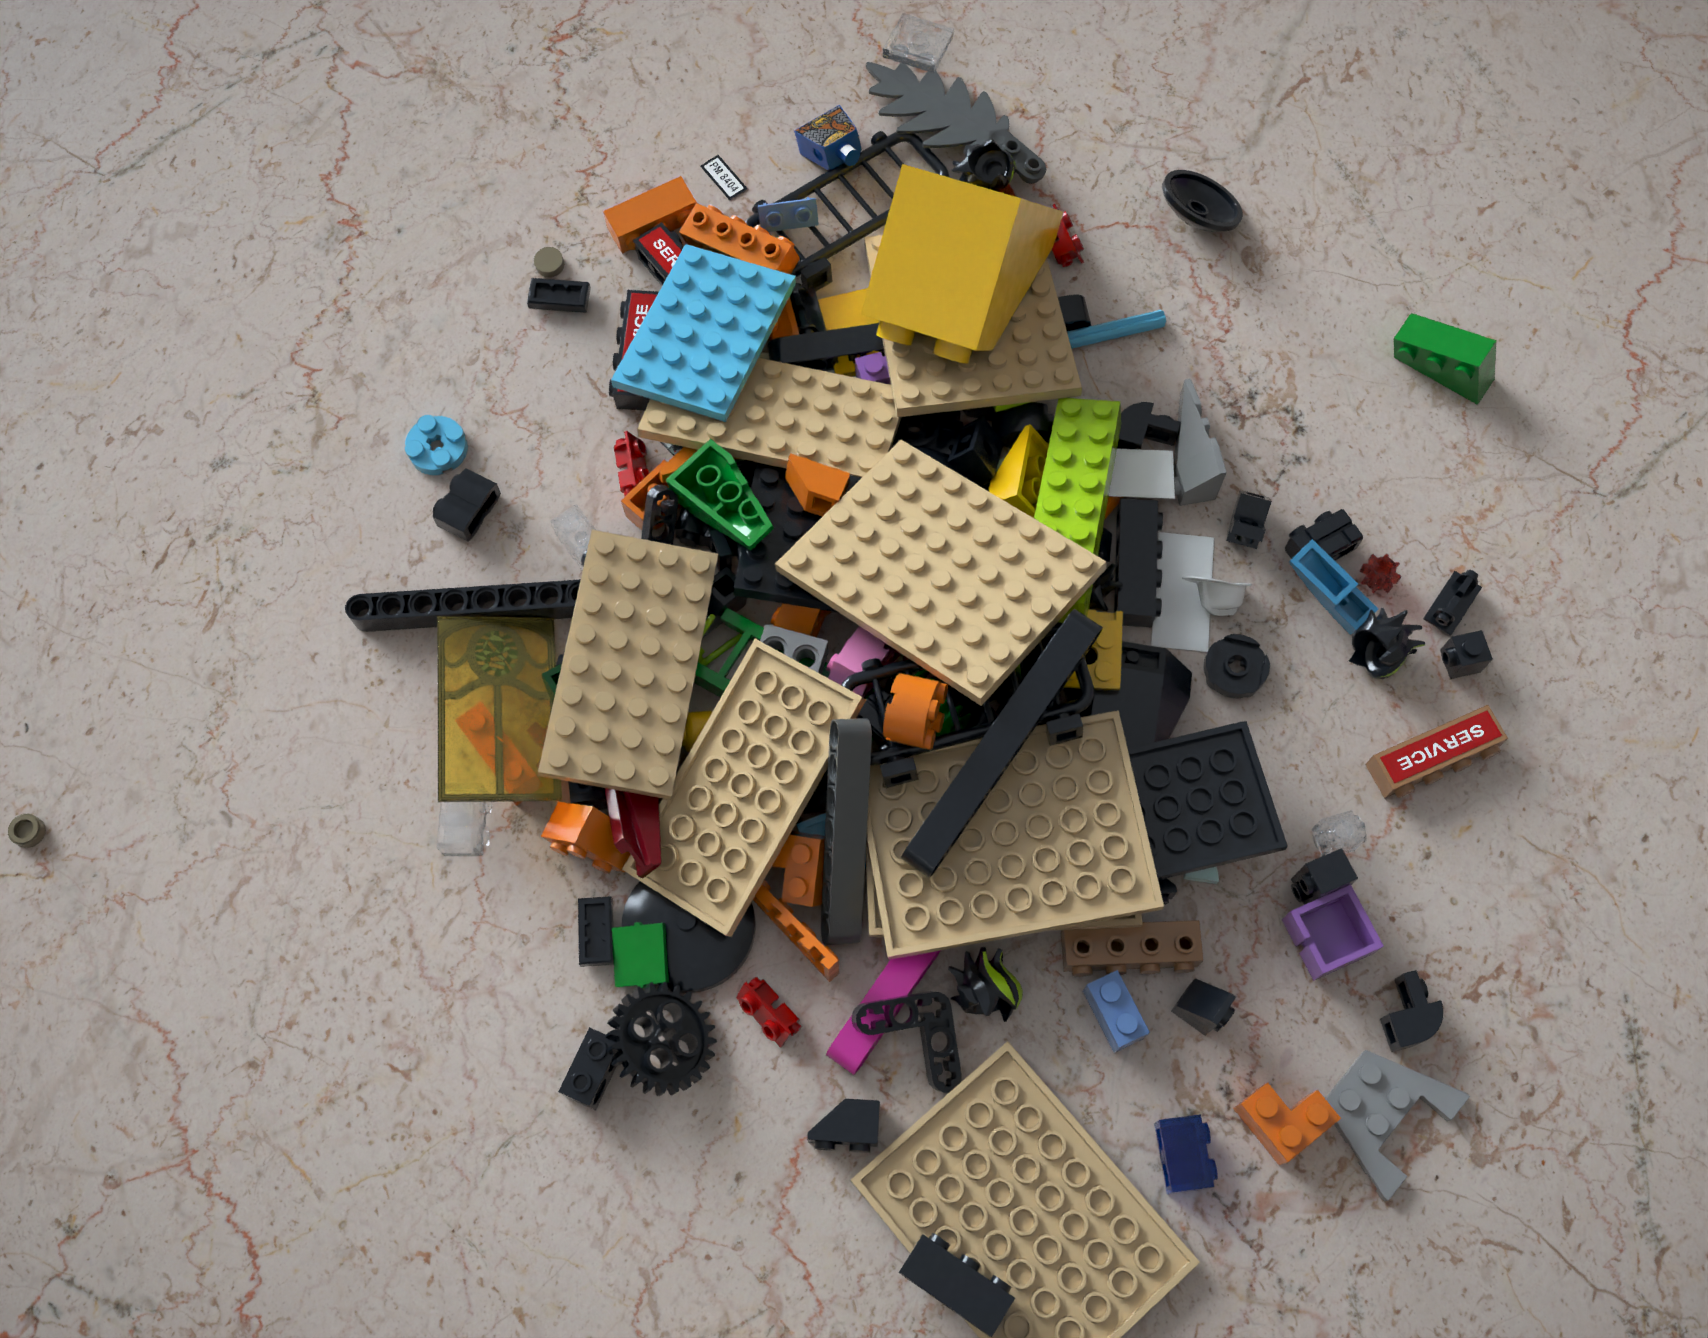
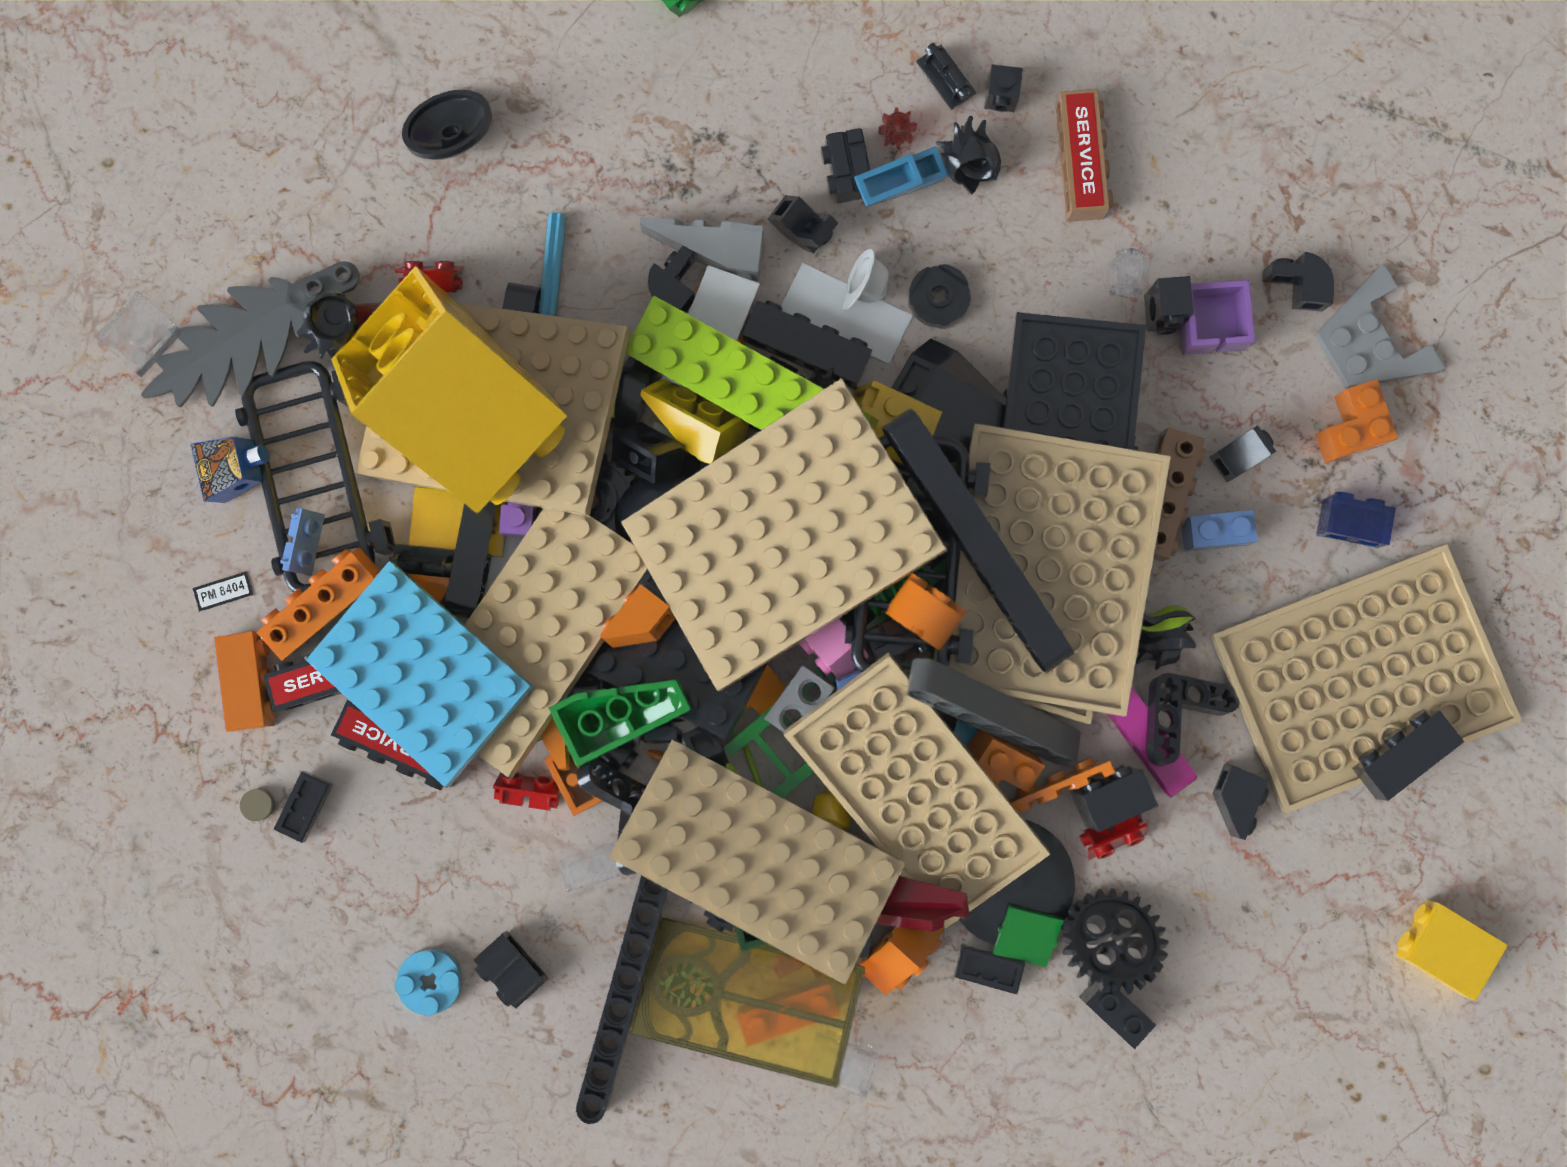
camera: 70 degrees left, 15 degrees up
(804, 988) = (1114, 798): none -> black brick

